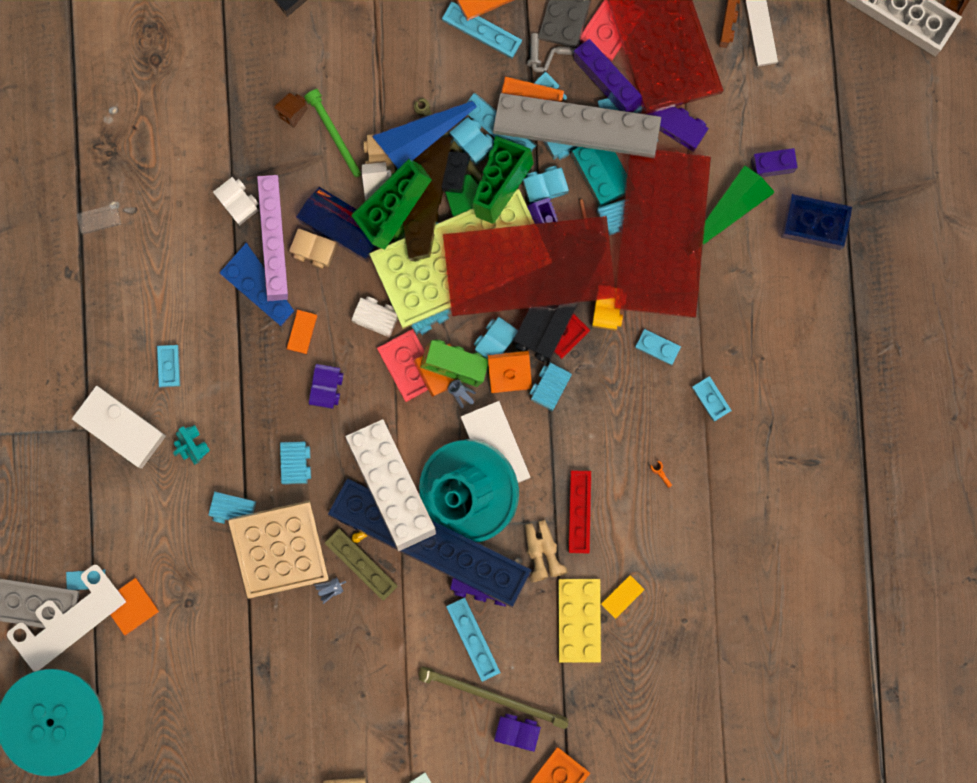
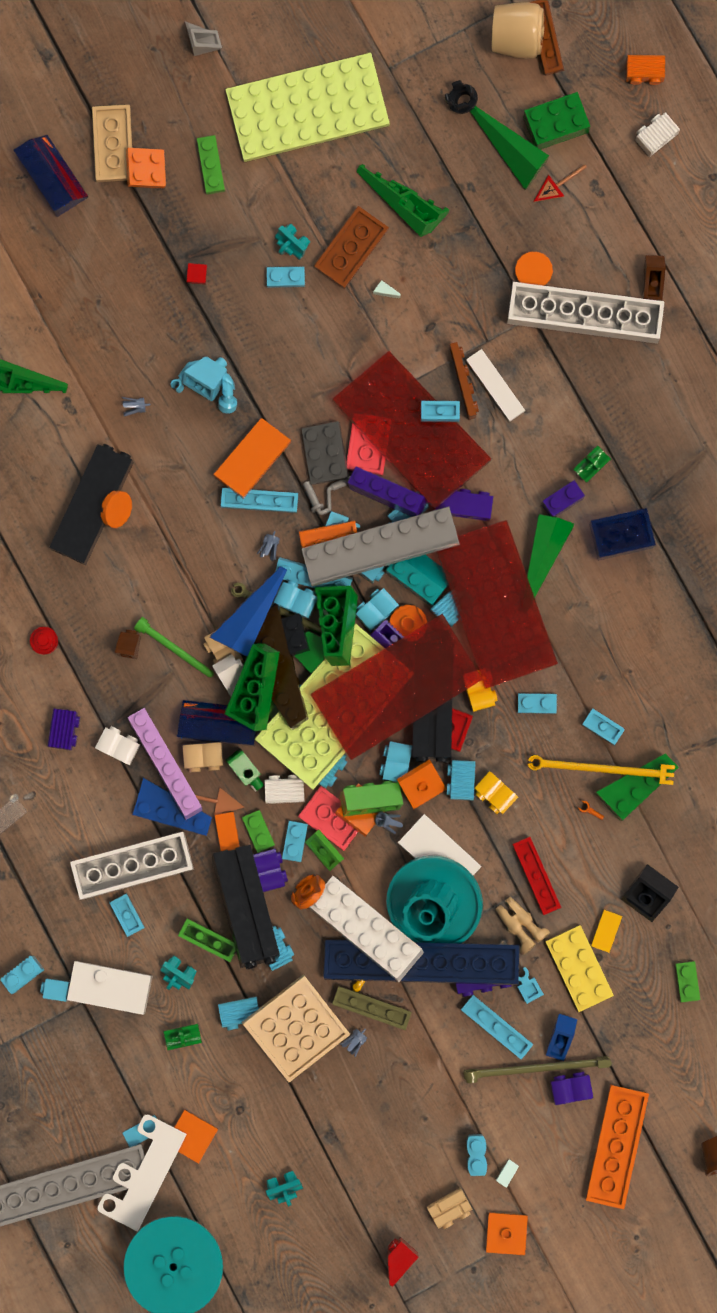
camera: 20 degrees left, 0 degrees up
(41, 375) = (22, 974): none -> medium azure brick
(65, 404) = (55, 989): none -> medium azure brick
(166, 506) = (182, 1037): none -> green hips
(191, 161) = (63, 729): none -> dark purple brick
(195, 320) = (132, 865): none -> white brick
(195, 702) = (283, 1191): none -> teal hips
(213, 68) = (44, 640): none -> red plate
(235, 426) = (208, 940): none -> bright green brick
(284, 410) = (245, 907): none -> black brick
(312, 302) = (224, 802): none -> nougat piece
(332, 345) = (258, 831): none -> bright green plate
(342, 270) = (239, 763): none -> torso
(352, 424) = (308, 891): none -> orange tile
(362, 370) = (295, 841): none -> medium azure plate
(386, 392) = (324, 850): none -> bright green plate
(393, 757) = (476, 1160): none -> medium azure brick
(472, 73) = (269, 543): none -> sand blue piece
(522, 617) = (529, 988): none -> medium azure plate
(531, 678) = (561, 1037): none -> blue slope
(570, 207) = (408, 619): none -> orange tile
(577, 414) = (496, 793): none -> yellow brick
(678, 682) = (687, 981): none -> bright green plate
(681, 579) = (650, 893): none -> black slope
(695, 22) = (440, 411): none -> medium azure plate
(713, 471) = (632, 790): none -> green wedge
(746, 468) = (662, 774): none -> yellow hinge
(818, 142) = (591, 464): none -> green hips

